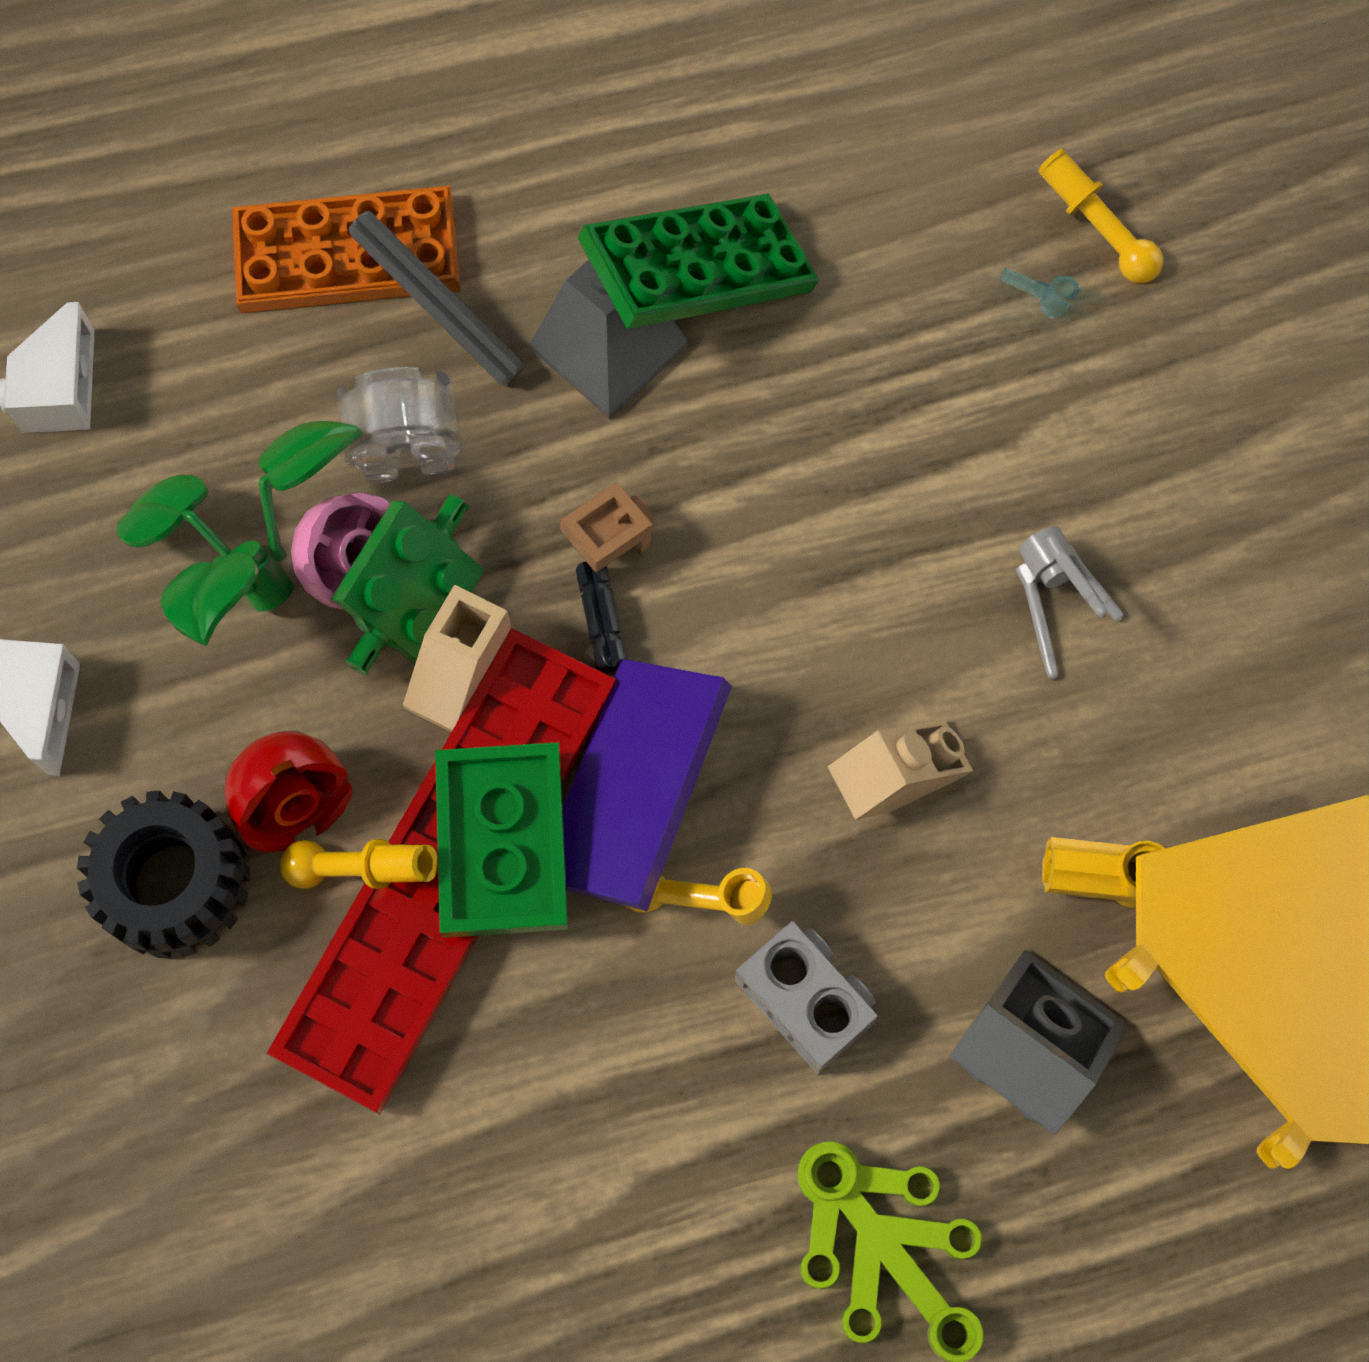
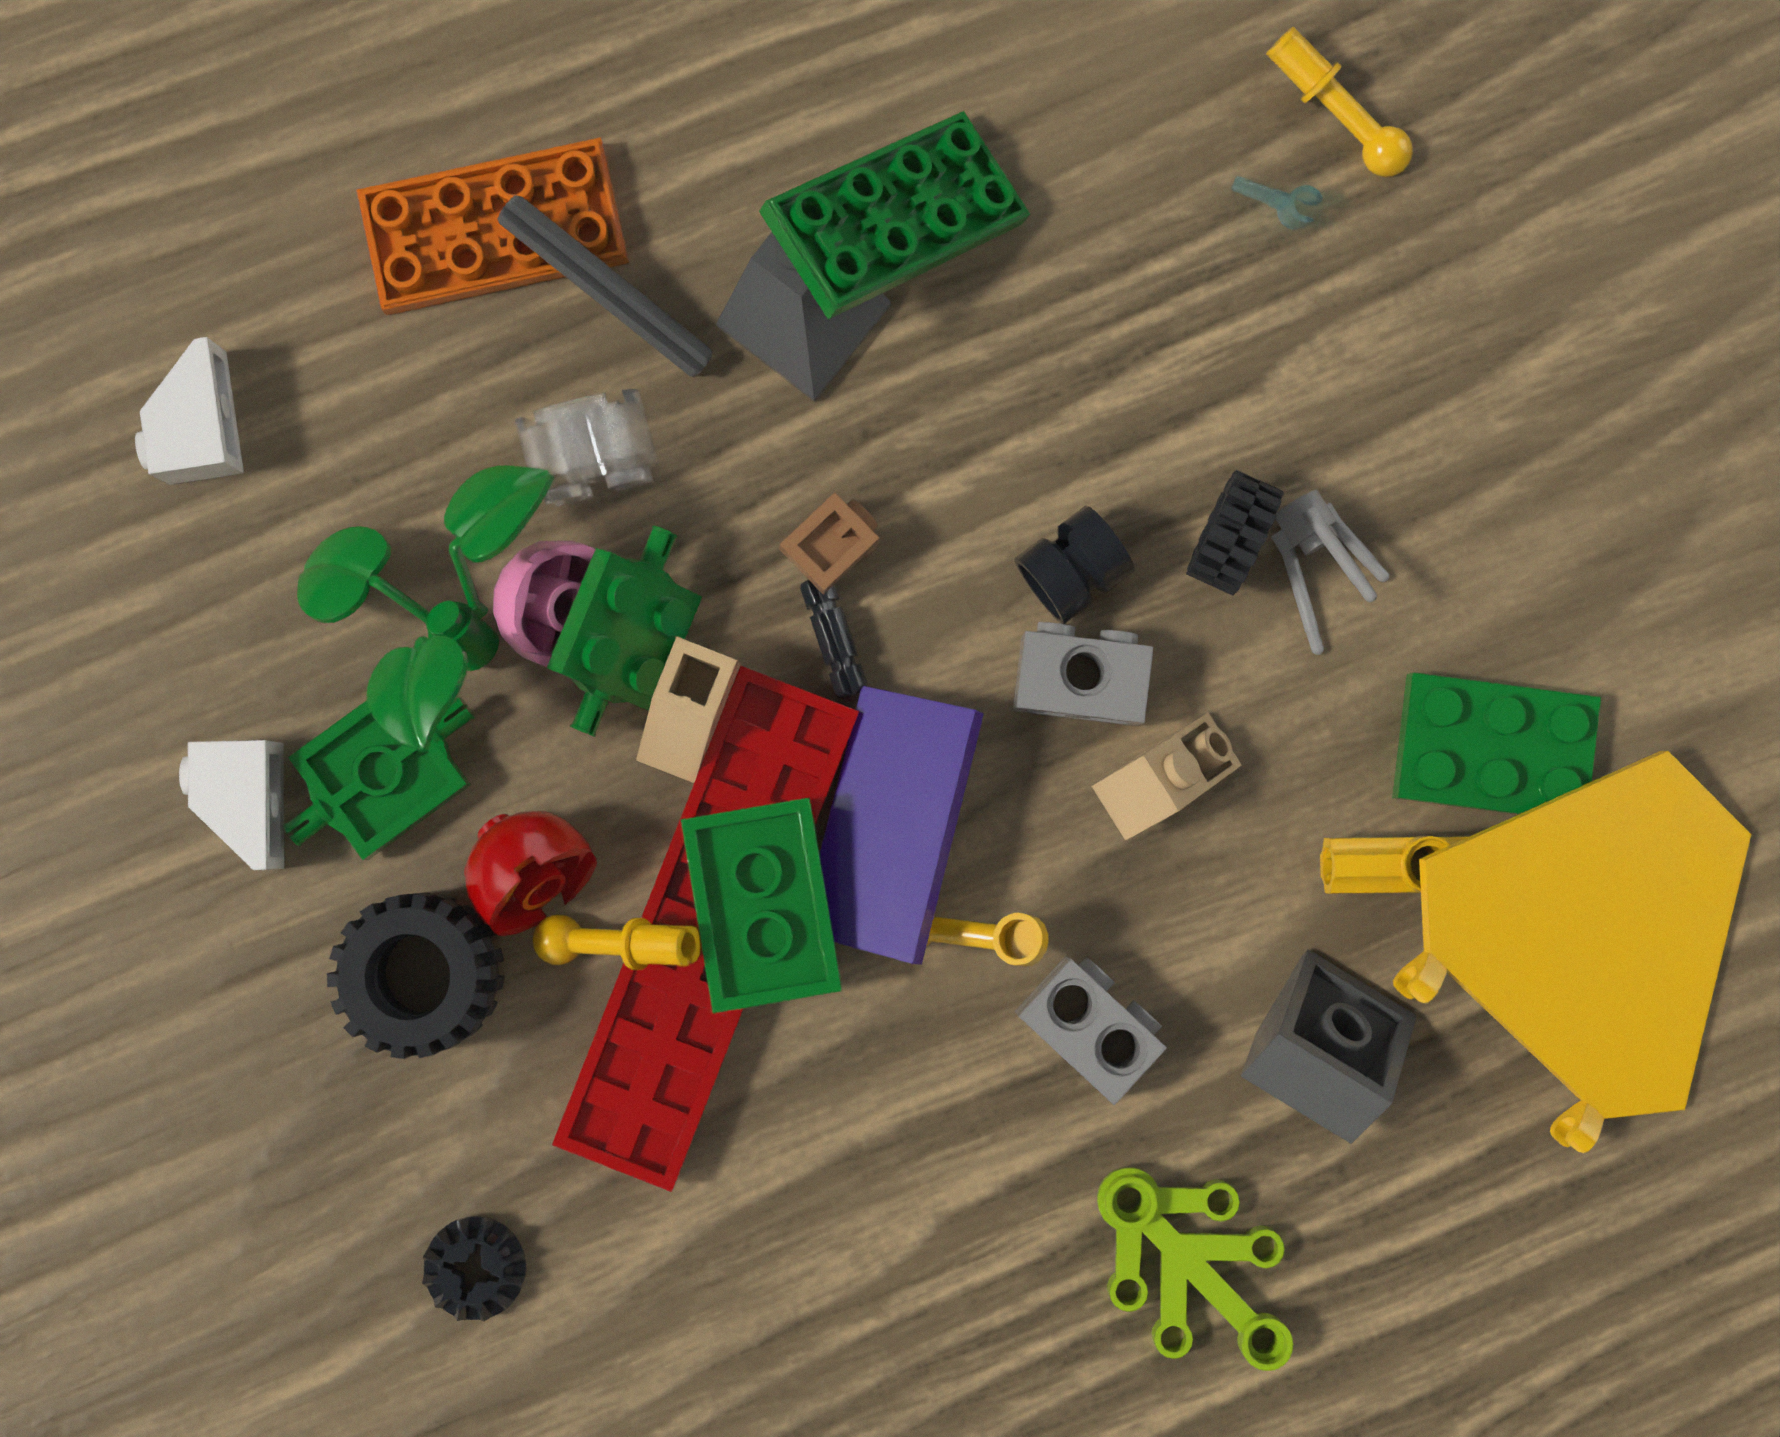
camera: 10 degrees left, 15 degrees up
(162, 694) = (372, 782): none -> green plate
(179, 1203) = (500, 1255): none -> black gear
(797, 685) = (1122, 682): none -> light grey brick
(836, 566) = (1075, 564): none -> black wheel
(979, 552) = (1235, 532): none -> black tyre
(1211, 772) = (1492, 744): none -> green plate

